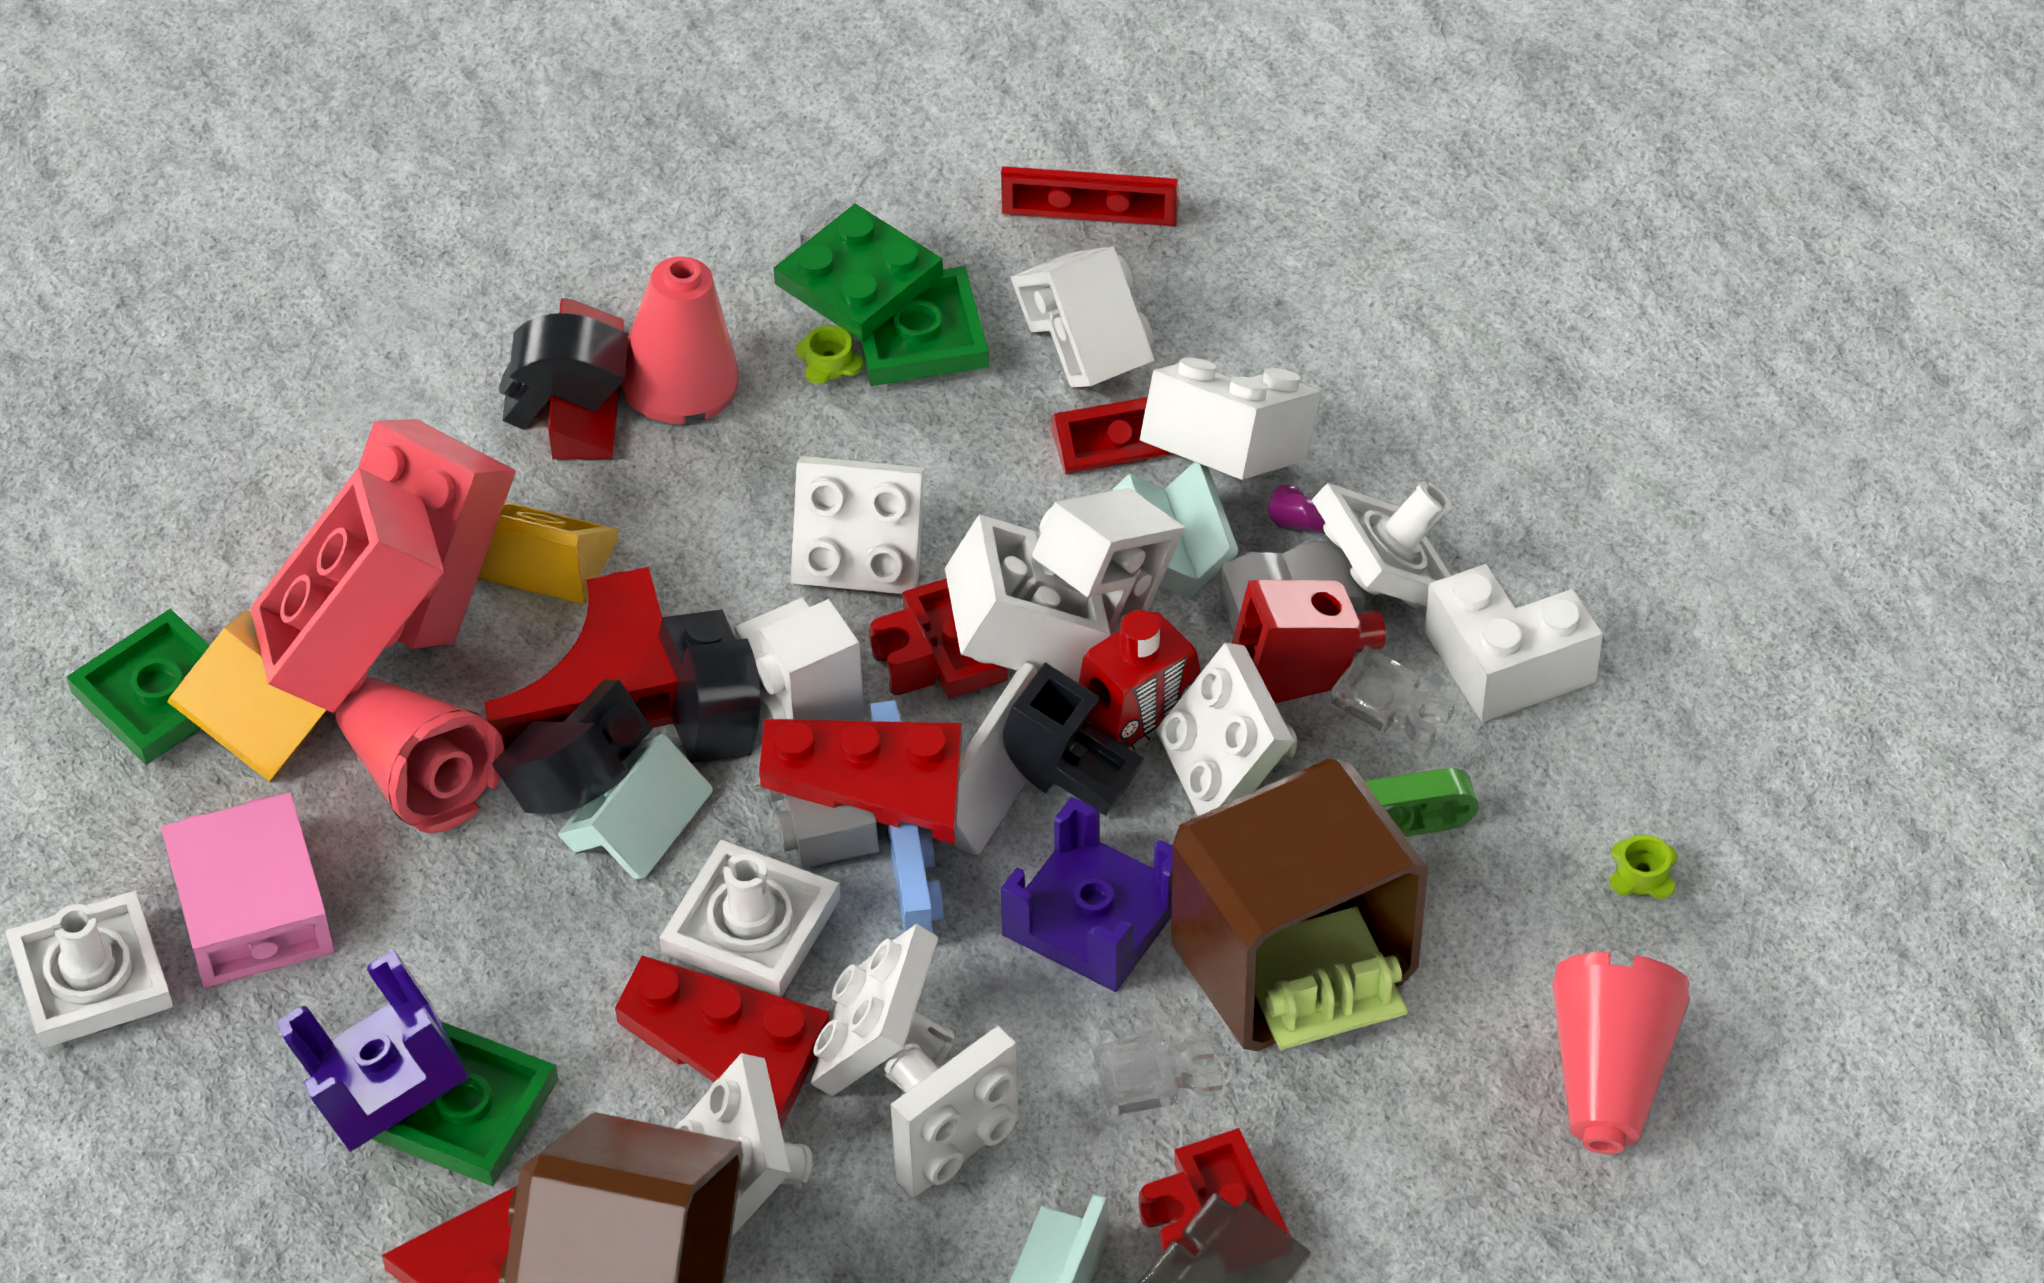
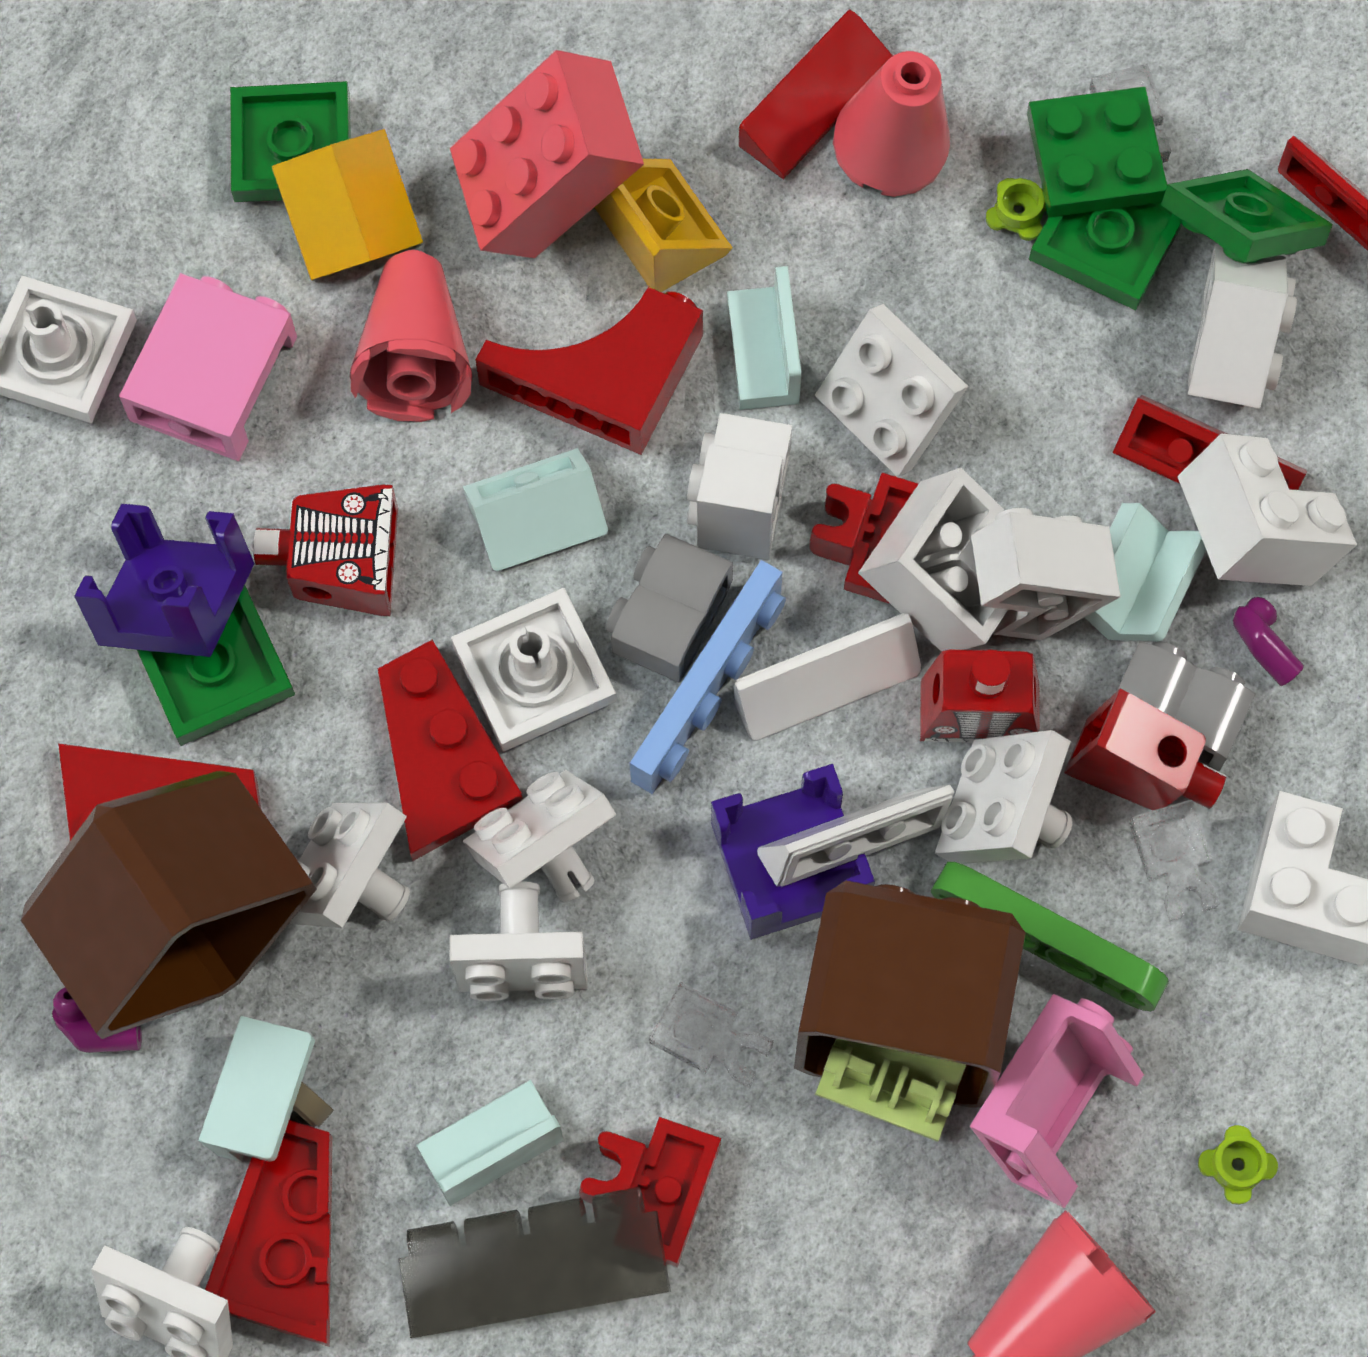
camera: 40 degrees right, 20 degrees up
(346, 591) = (436, 180): coral brick -> none
(497, 943) = (337, 548): none -> torso
(565, 359) = (795, 75): black brick -> none
(576, 760) = (513, 440): black brick -> none
(717, 686) = (664, 446): black brick -> none
(718, 564) = (765, 344): none -> light aqua panel
(877, 766) = (710, 623): red wing -> none
(1026, 237) = (1246, 215): none -> green plate
(1055, 743) = (878, 702): black brick -> none
(1134, 842) = (855, 834): none -> white slope
(1387, 540) = (1288, 724): white plate -> none
(1462, 922) = (1047, 1092): none -> bright pink panel

